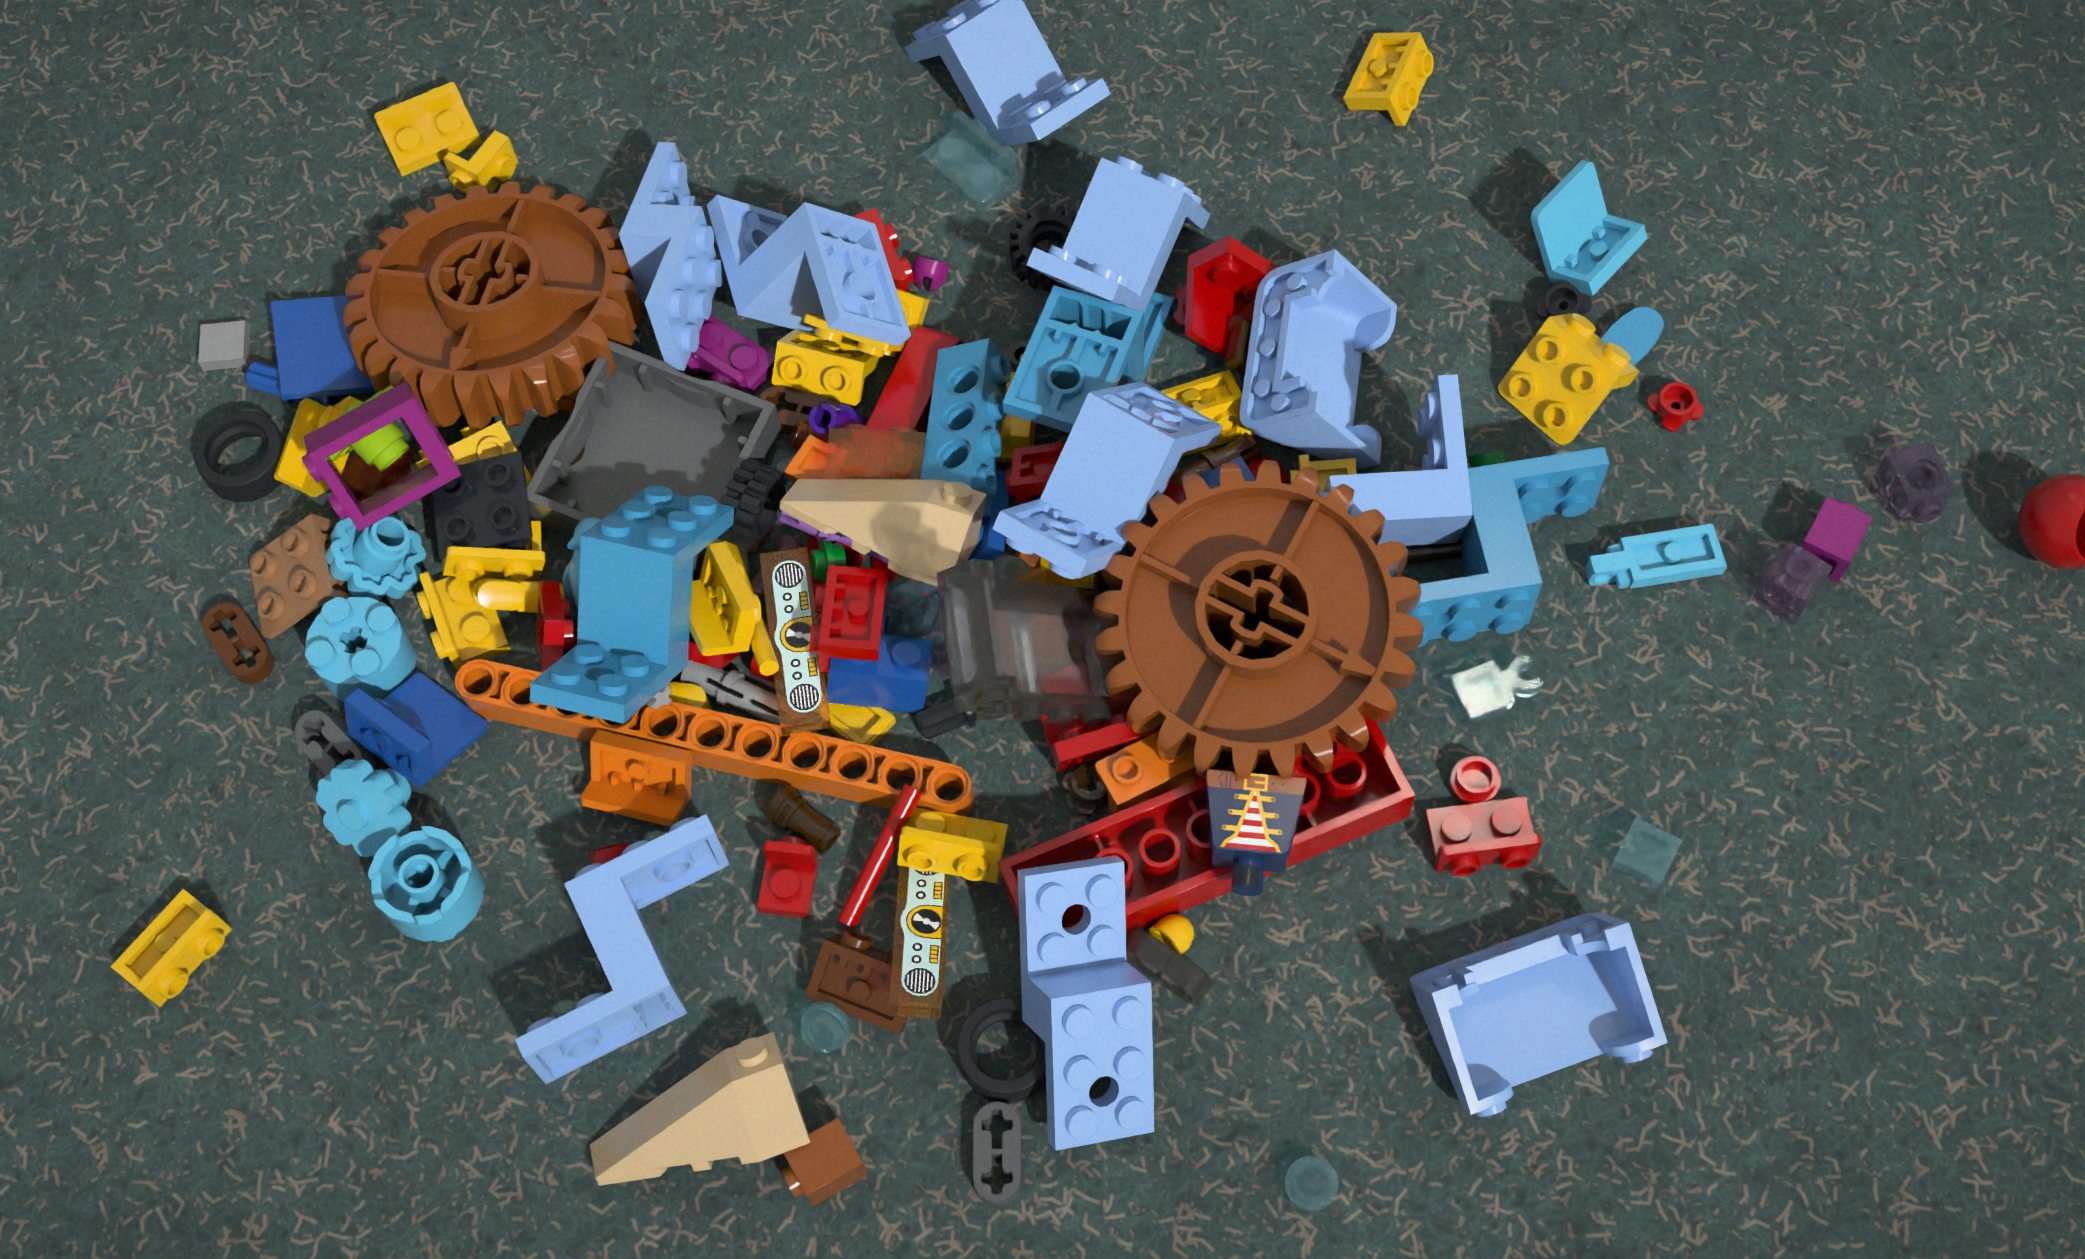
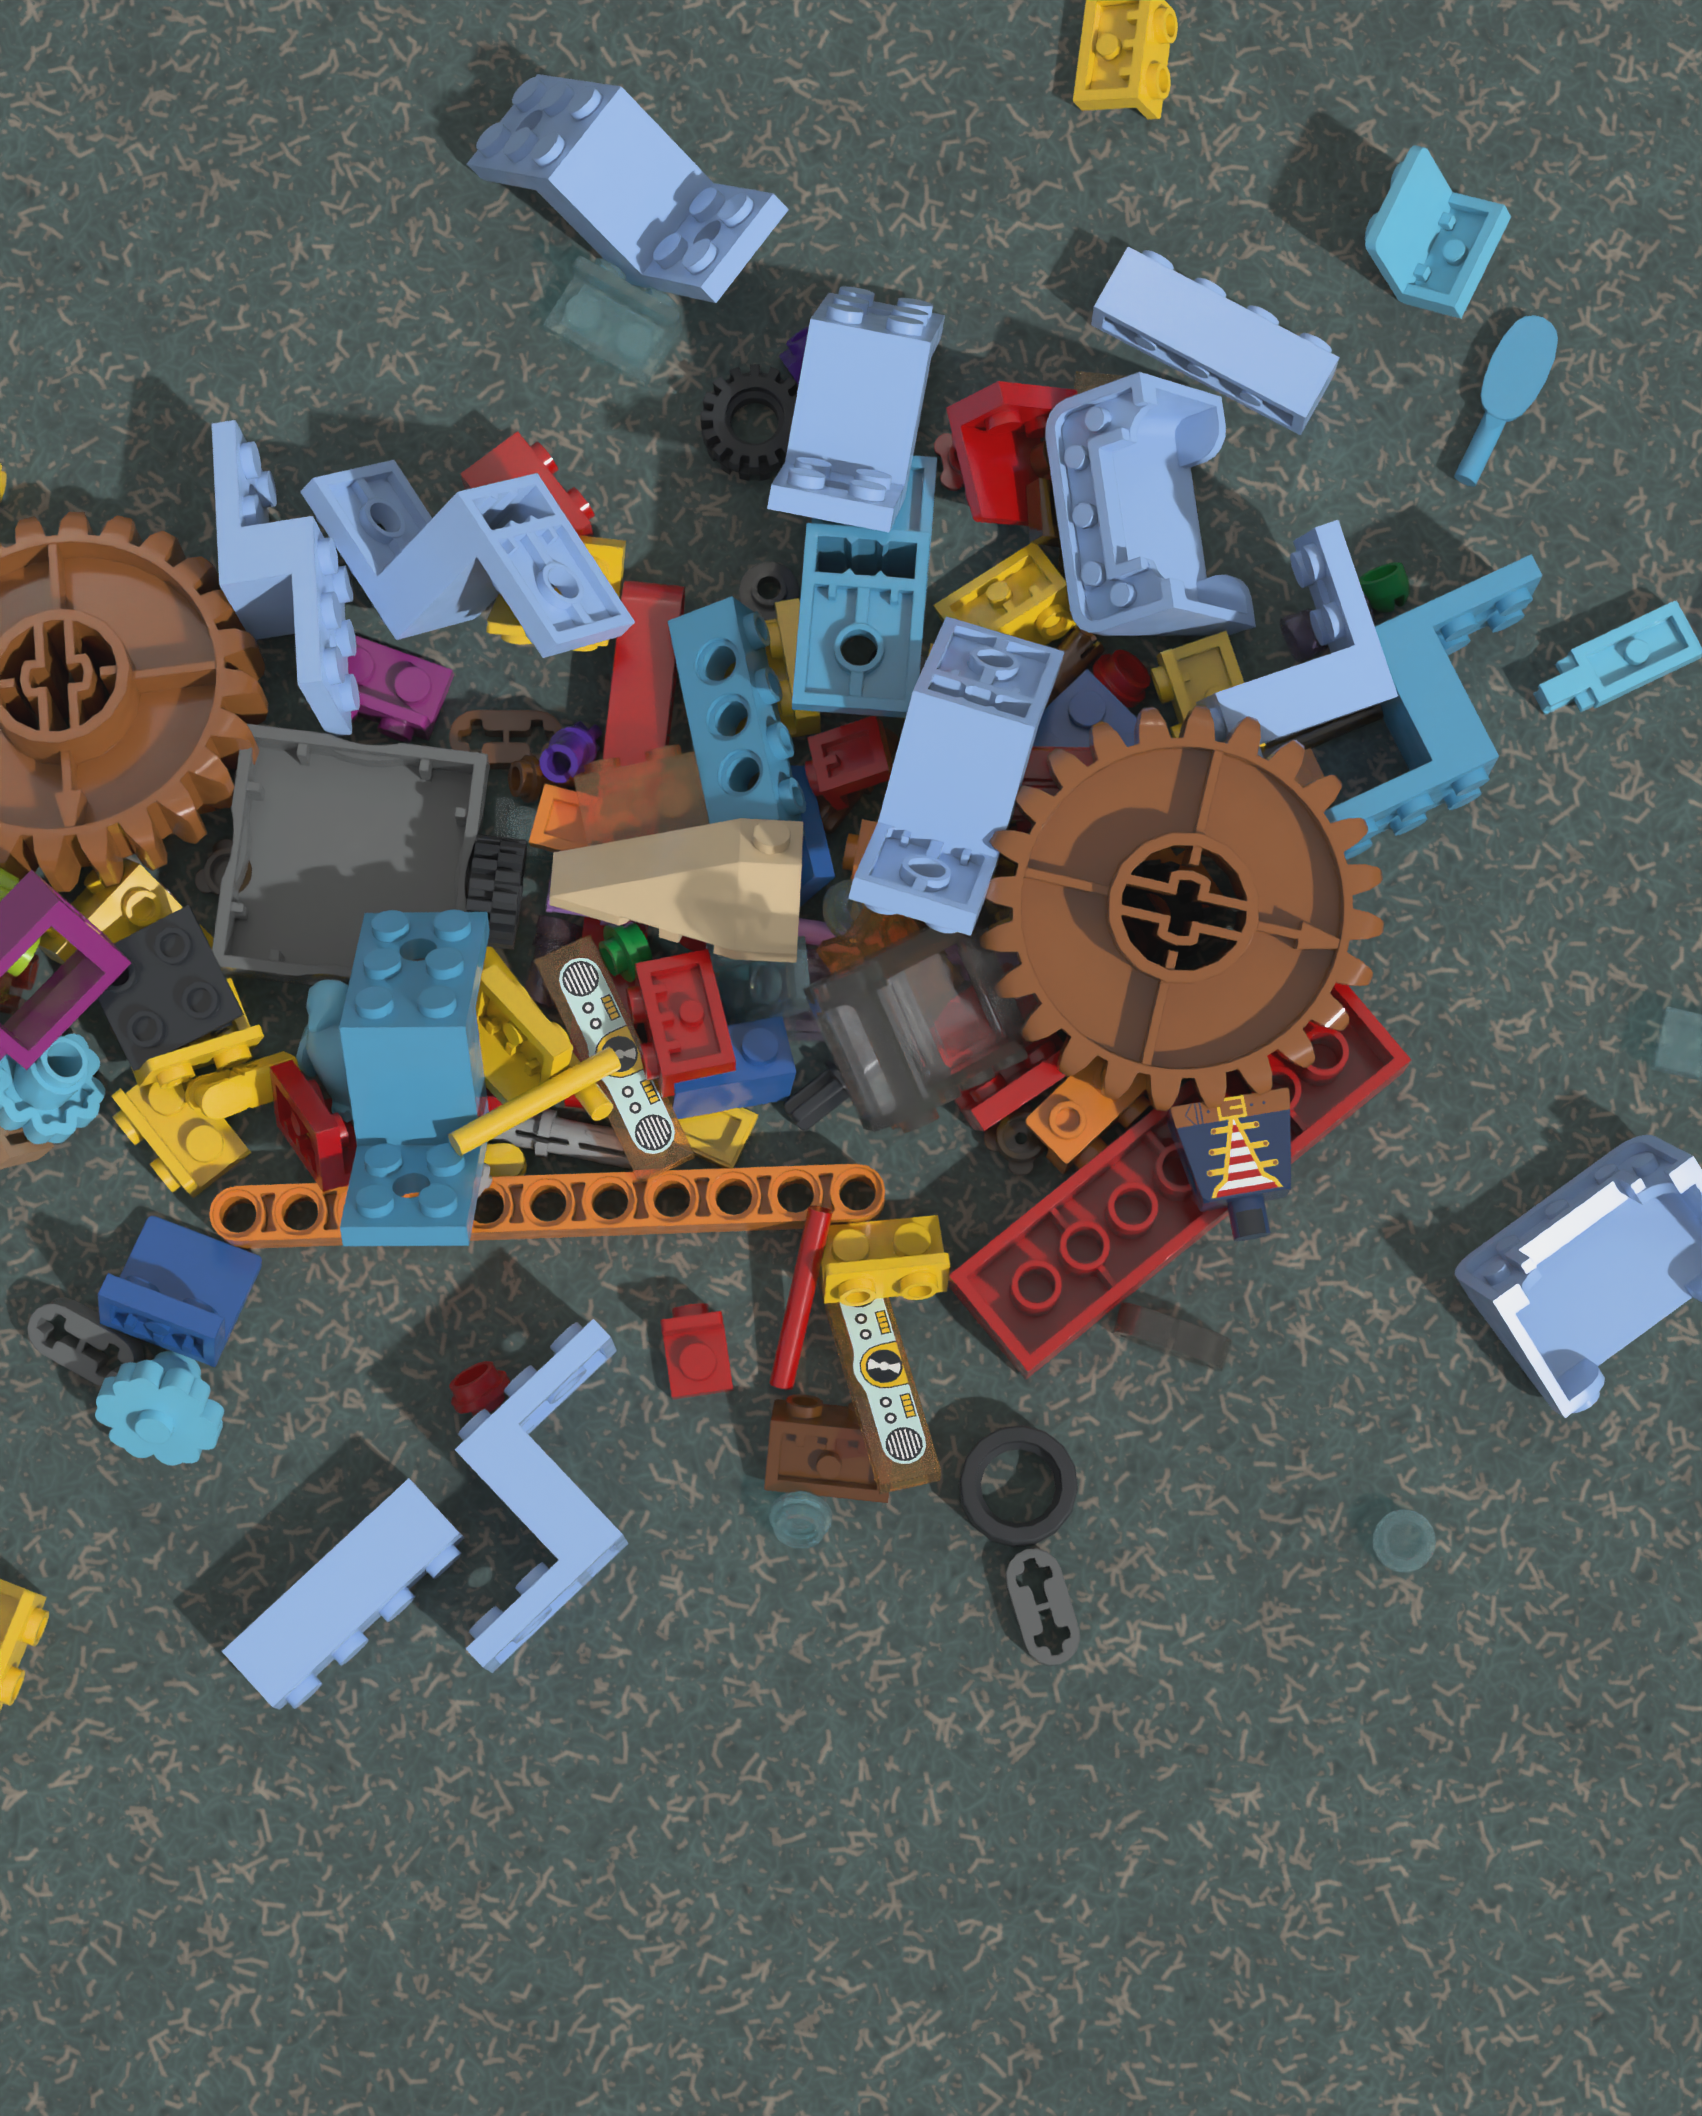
camera: 20 degrees left, 15 degrees up
(359, 646) = (45, 1187): medium azure brick -> none
(448, 986) = (344, 1596): none -> light blue brick
(451, 877) = (252, 1453): medium azure brick -> none
(638, 778) = (479, 1285): orange bracket -> none
(717, 642) = (534, 1101): none -> yellow bar
(725, 1109) = (714, 1655): tan wedge -> none
(794, 814) = (675, 1270): dark brown pin -> none
(822, 366) = (511, 675): yellow bracket -> none
(824, 1164) = (850, 1677): dark orange brick -> none
(929, 269) = (609, 493): magenta hinge -> none
(1086, 1002) = (1102, 1414): light blue bracket -> none
(1174, 932) = (1169, 1294): yellow hinge -> none
(1405, 269) = (1215, 339): none -> light blue brick
(1475, 780) = (1469, 1007): plate -> none
(1482, 835) = (1493, 1073): bracket -> none
(1488, 691) = (1458, 890): clear light blue plate -> none
(1563, 293) = (1422, 322): black plate -> none
(1565, 376) = (1456, 444): yellow bracket -> none
(1679, 394) = (1599, 427): red plate -> none

